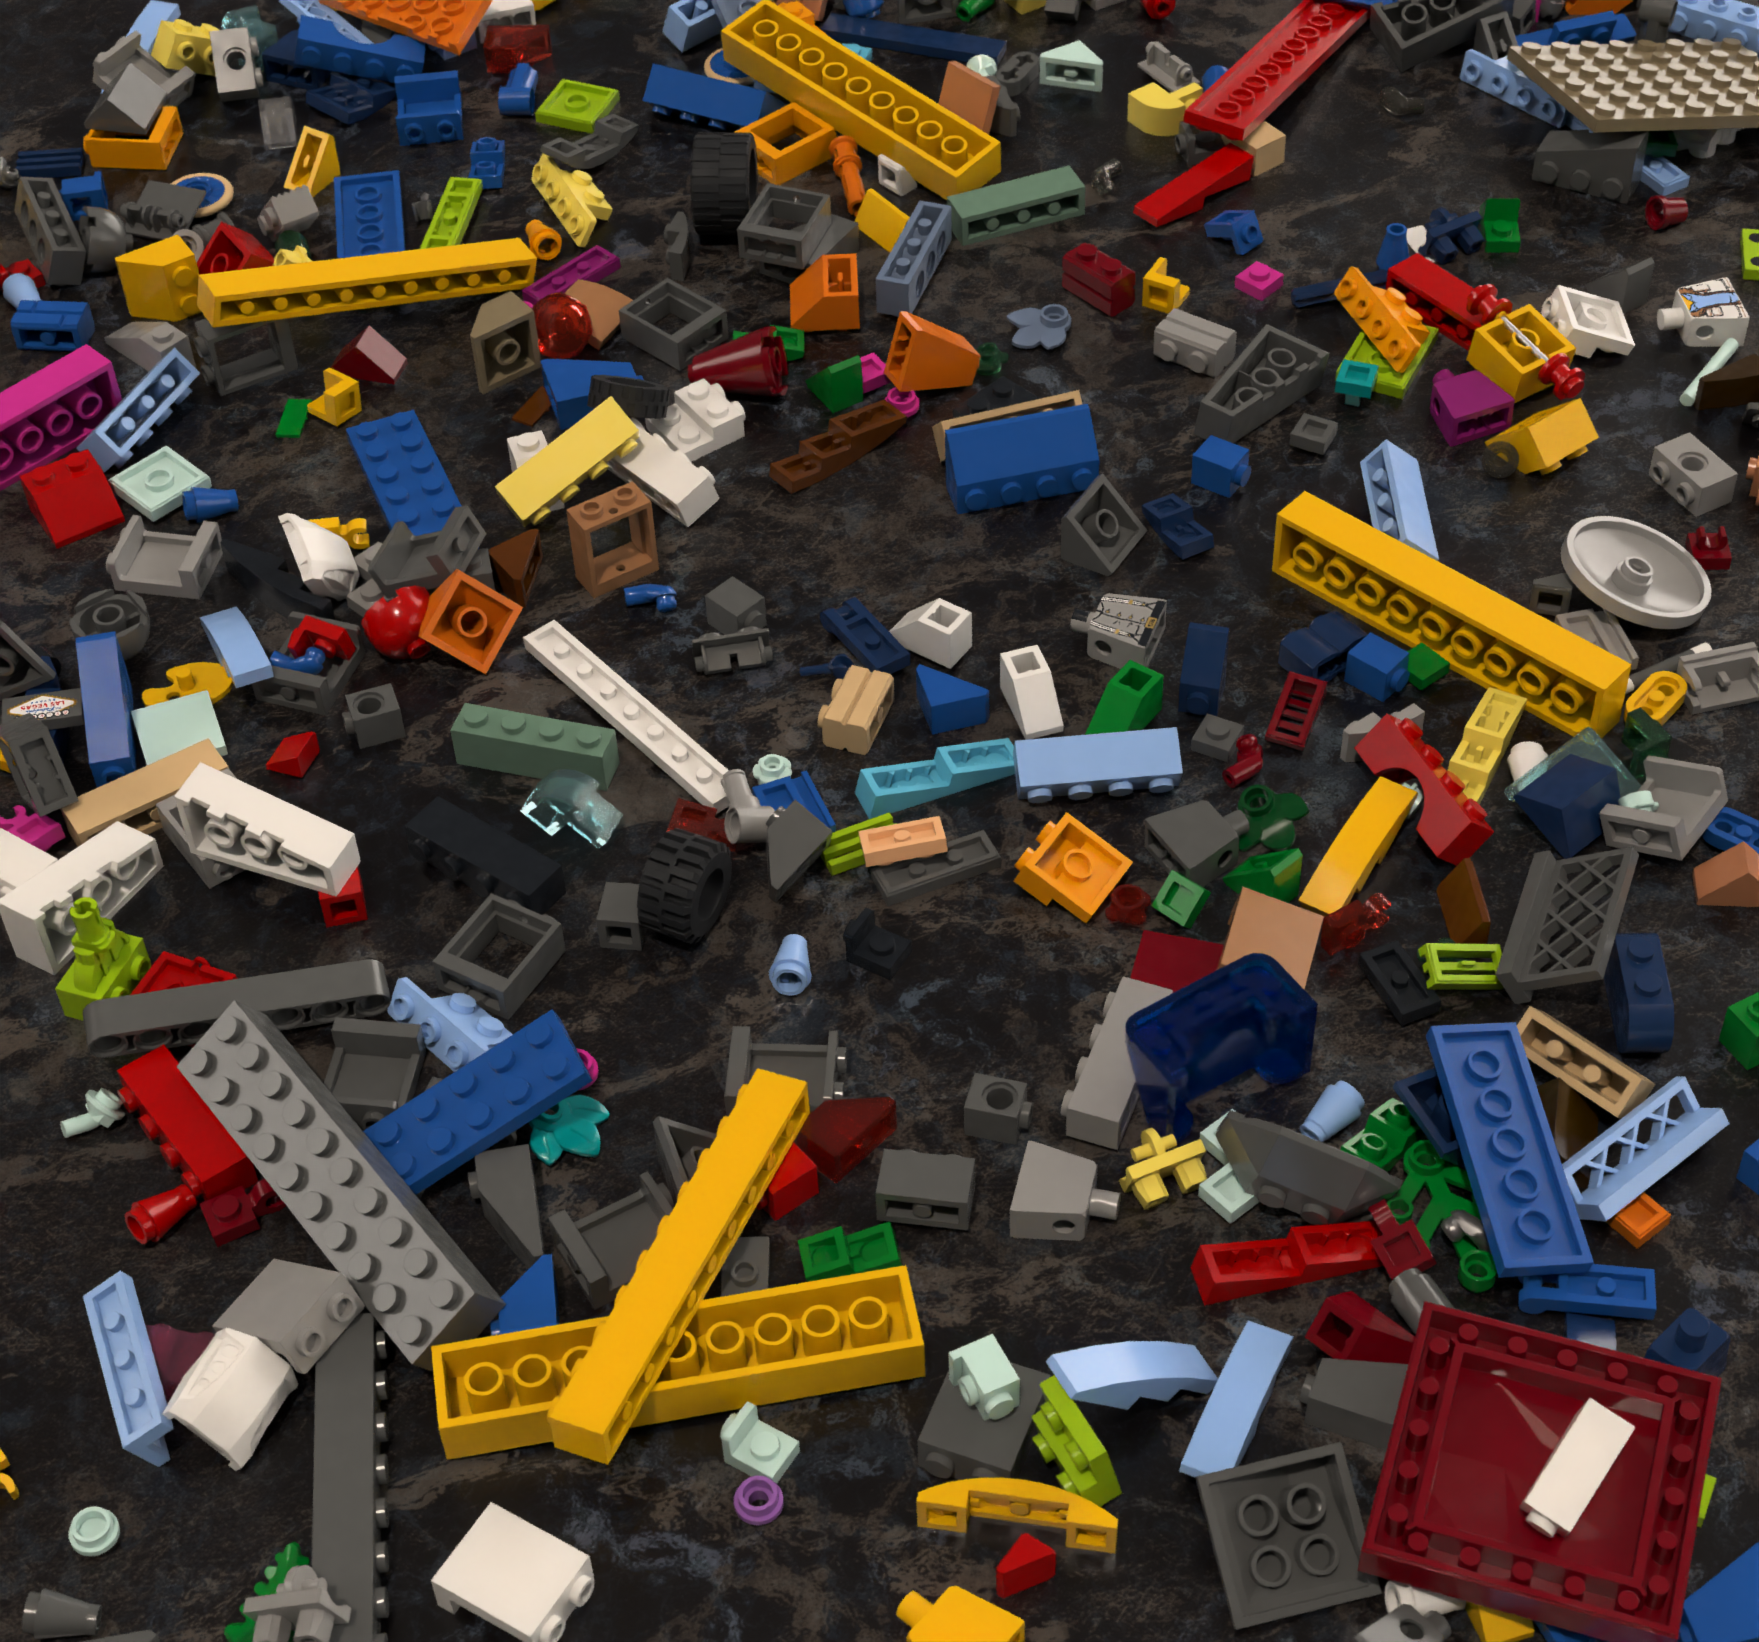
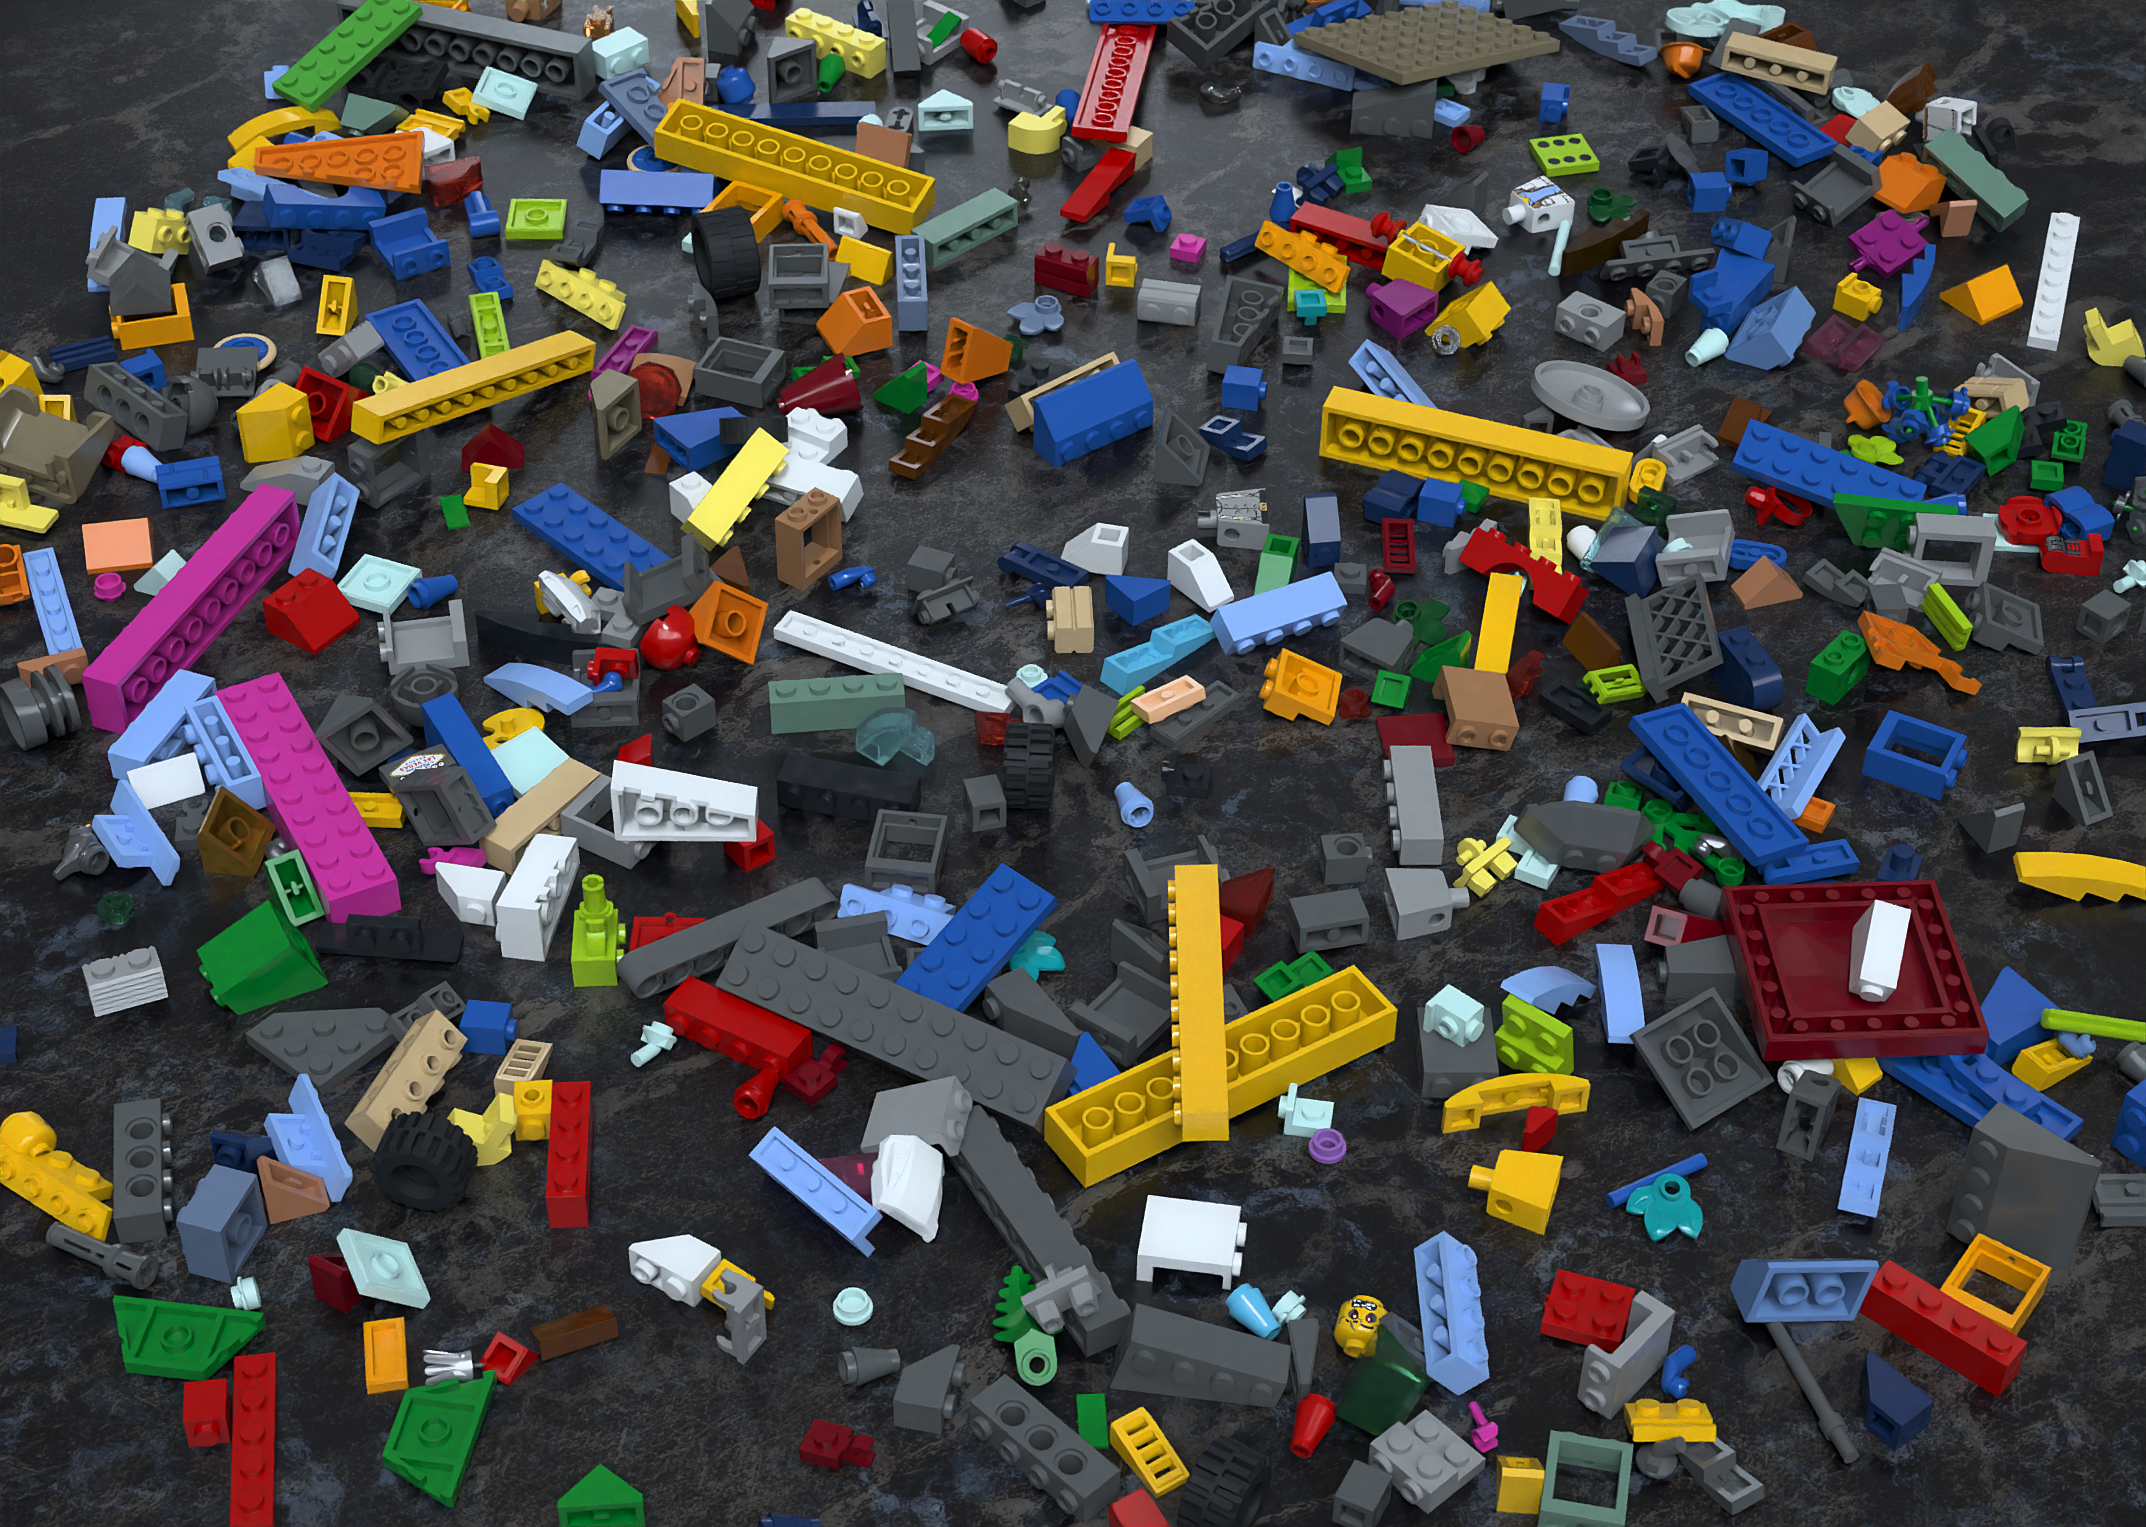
camera: 25 degrees left, 5 degrees down
(543, 240) = (583, 326): light orange cone -> none
(1215, 1031) = (1490, 751): clear blue windscreen -> none

